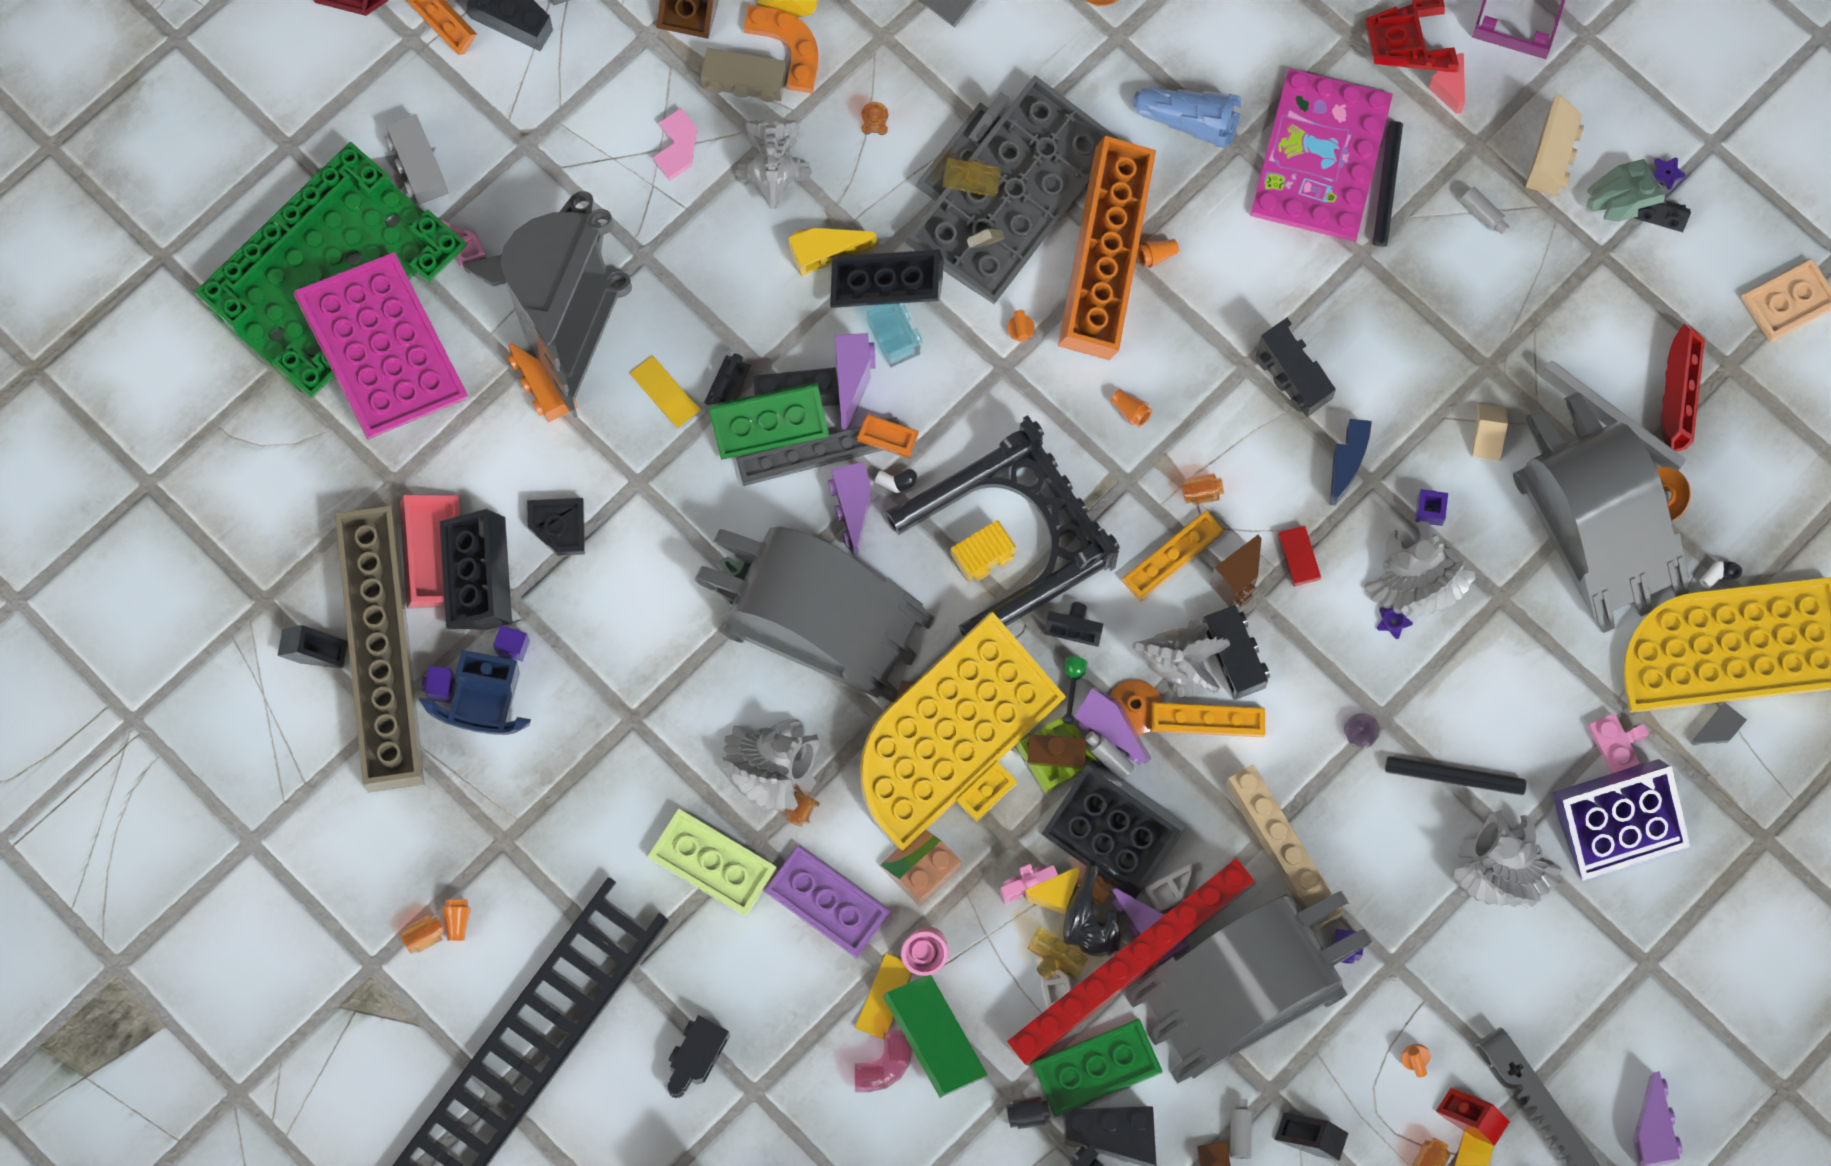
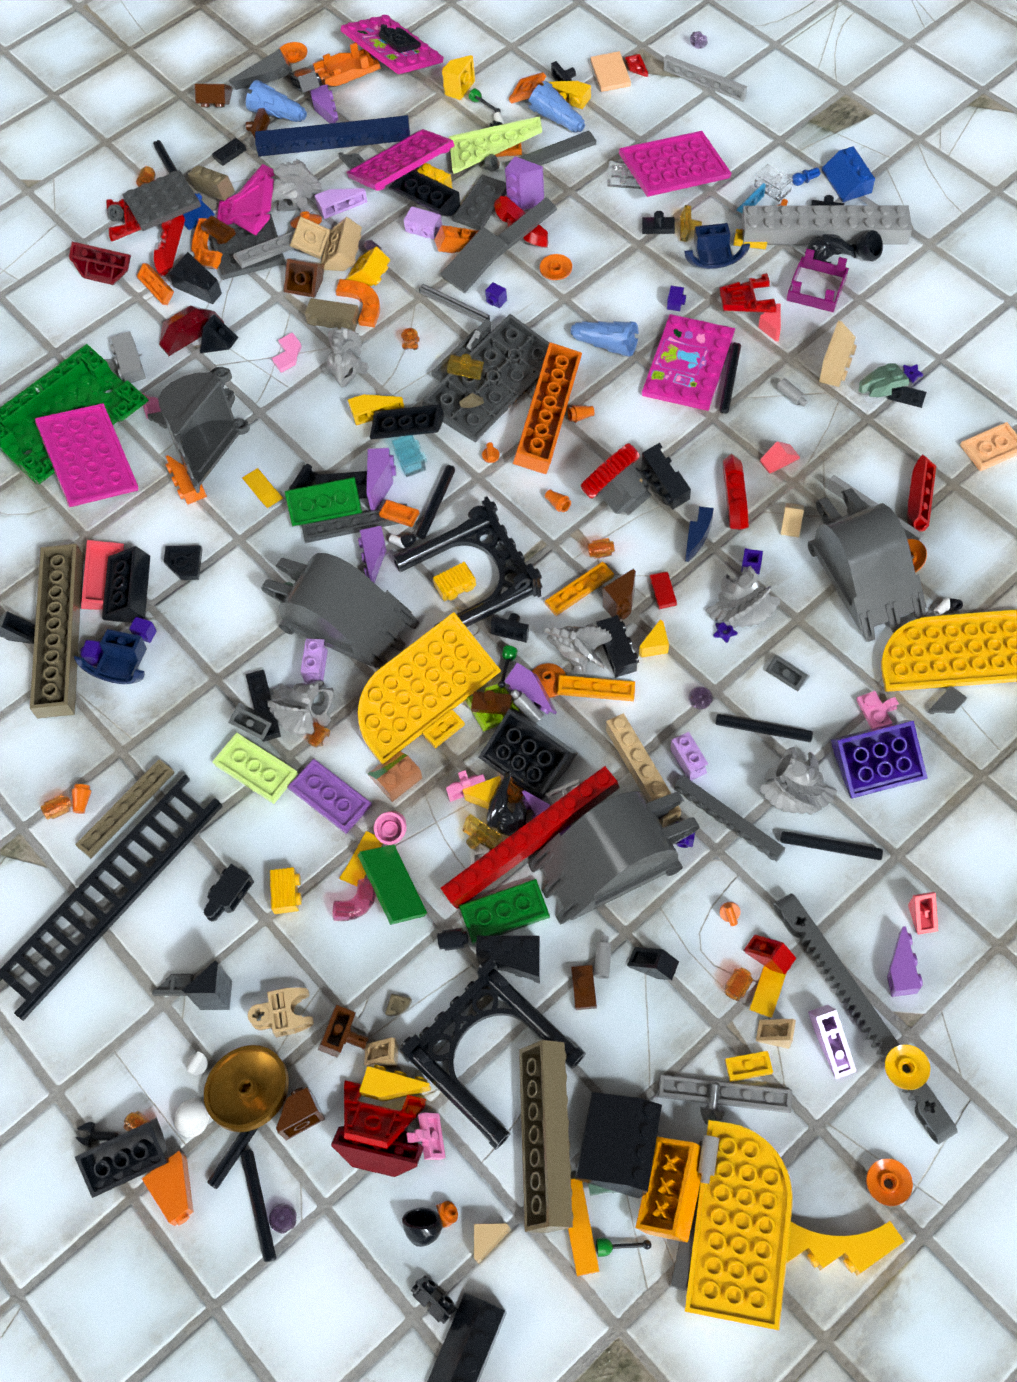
camera: 10 degrees right, 10 degrees down
(505, 99) = (184, 328): none -> dark red wedge
(525, 932) = (124, 808): none -> dark tan plate
(559, 118) = (216, 336): none -> black slope
(697, 790) = (250, 721): none -> dark grey slope
(709, 760) = (260, 696): none -> black tile
(779, 1050) = (284, 890): none -> yellow brick
(782, 688) = (314, 660): none -> lavender hinge
(940, 50) = (453, 303): none -> axle
(941, 412) = (435, 502): none -> black axle
(1007, 35) = (496, 295): none -> dark purple plate
(1226, 381) = (619, 482): none -> piece
(1294, 644) = (656, 642): none -> yellow slope
(1297, 39) = (676, 298): none -> dark purple plate
(1349, 825) = (689, 756): none -> lavender hinge
(1402, 389) = (735, 493): none -> red brick
(1410, 916) = (730, 818): none -> dark grey piece
(1467, 325) = (779, 456): none -> coral slope
(1487, 686) = (787, 673): none -> dark grey slope
(1555, 953) = (831, 845): none -> black axle
(1684, 1049) = (924, 912): none -> coral slope

